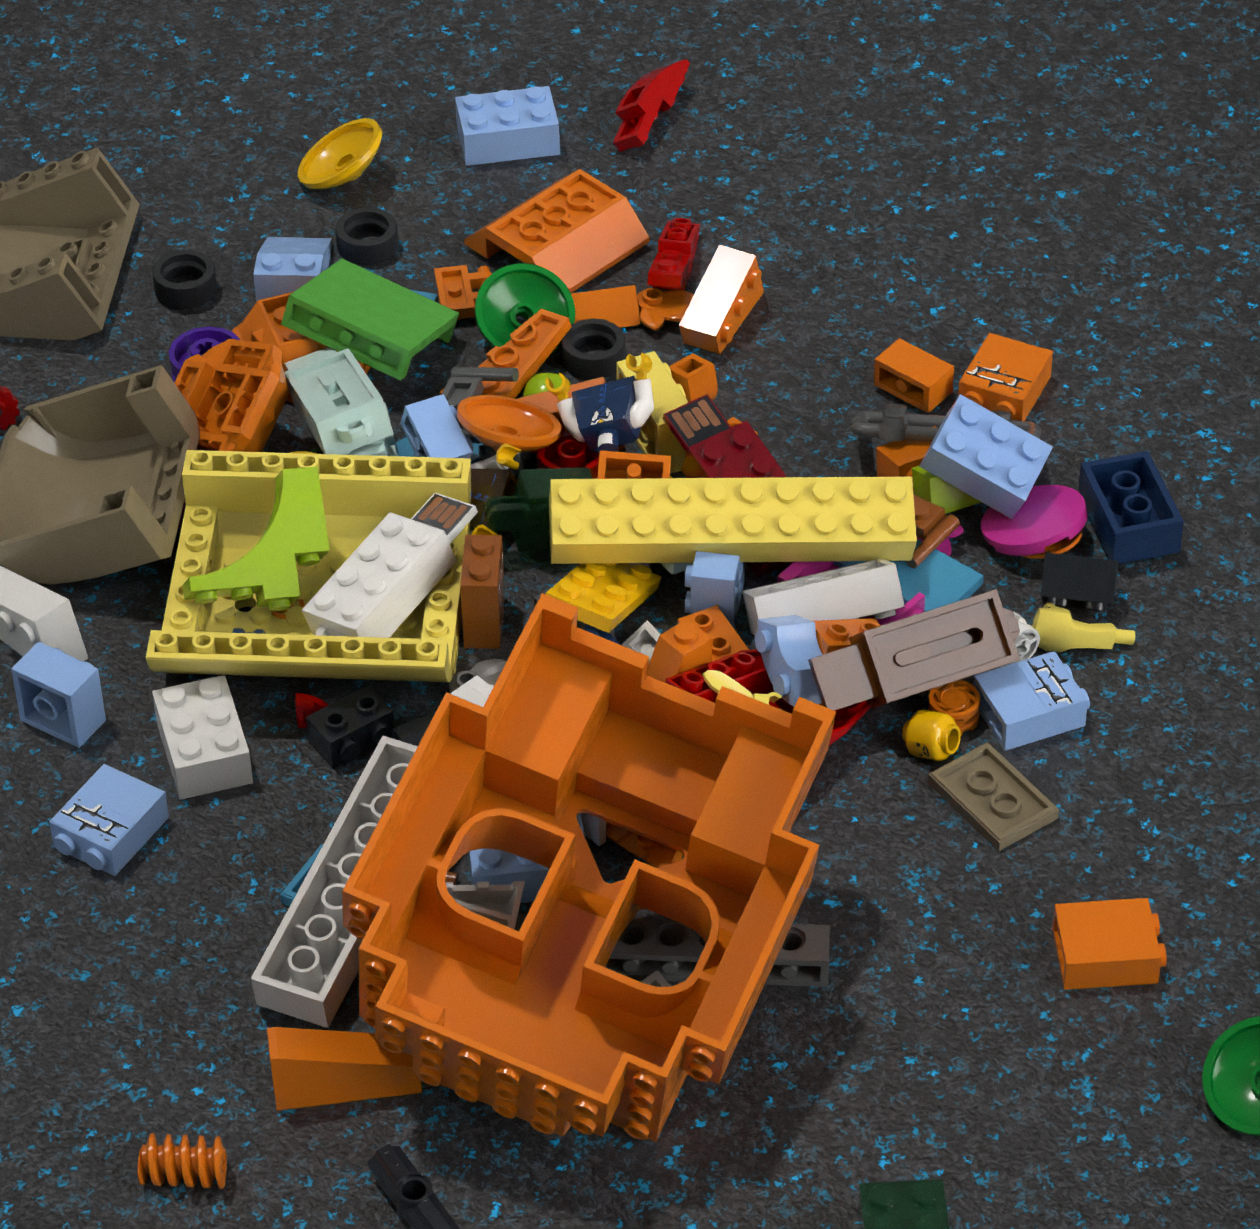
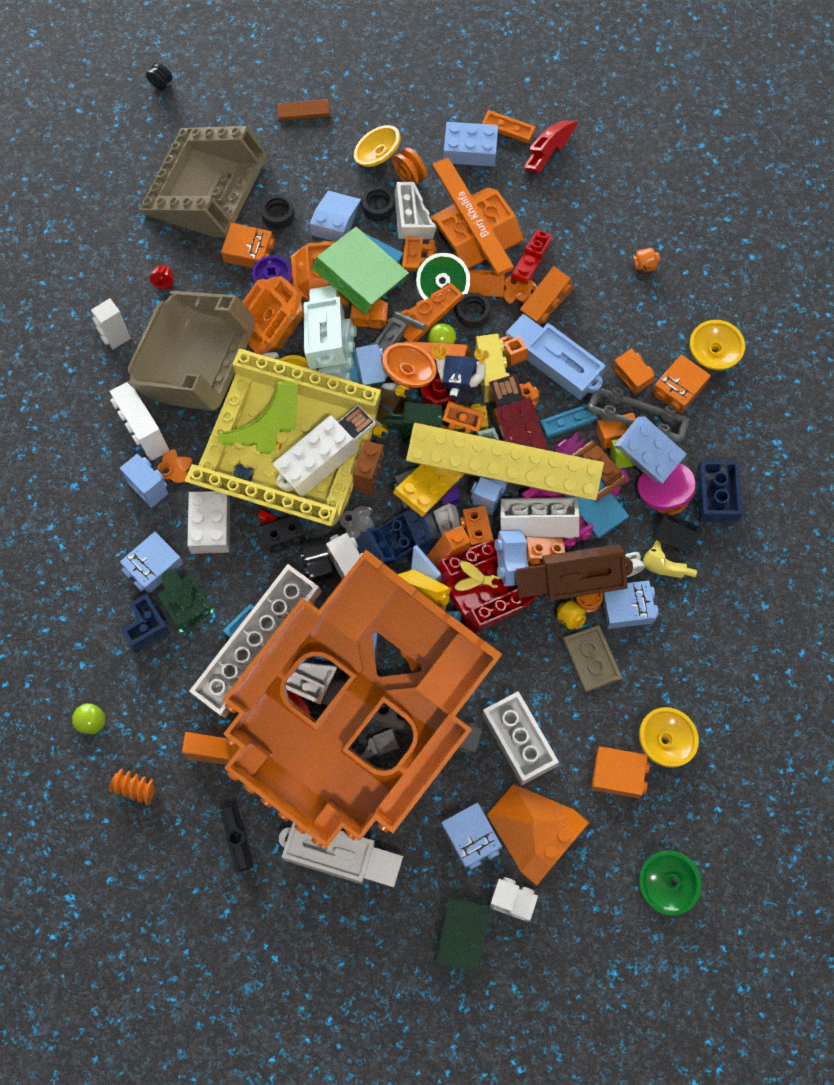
camera: 15 degrees right, 25 degrees up
(57, 1082) = (88, 719): none -> lime hair
(115, 674) = (176, 465): none -> orange plate
(130, 908) = (148, 627): none -> dark blue brick
(141, 333) = (246, 245): none -> orange brick
(184, 136) = (303, 110): none -> dark orange tile
(215, 856) = (184, 600): none -> clear green brick
(410, 170) = (409, 166): none -> orange wheel
(418, 385) = (375, 318): none -> orange brick
(433, 233) = (411, 213): none -> white wedge
(550, 208) = (473, 216): none -> orange tile
(575, 93) = (510, 127): none -> orange plate
(620, 1177) = (342, 858): none -> white piece
(650, 608) = (451, 497): none -> dark purple slope
(779, 380) = (559, 357): none -> light blue piece
(838, 461) = (567, 421): none -> dark azure tile
(867, 1097) = (472, 836): none -> light blue brick
(878, 225) = (646, 260): none -> orange head
(904, 927) = (520, 738): none -> white brick
(978, 1174) = (512, 900): none -> white brick
(981, 1069) = (535, 830): none -> orange wedge
(1047, 310) = (717, 336): none -> yellow dish
(1176, 866) = (676, 730): none -> yellow dish

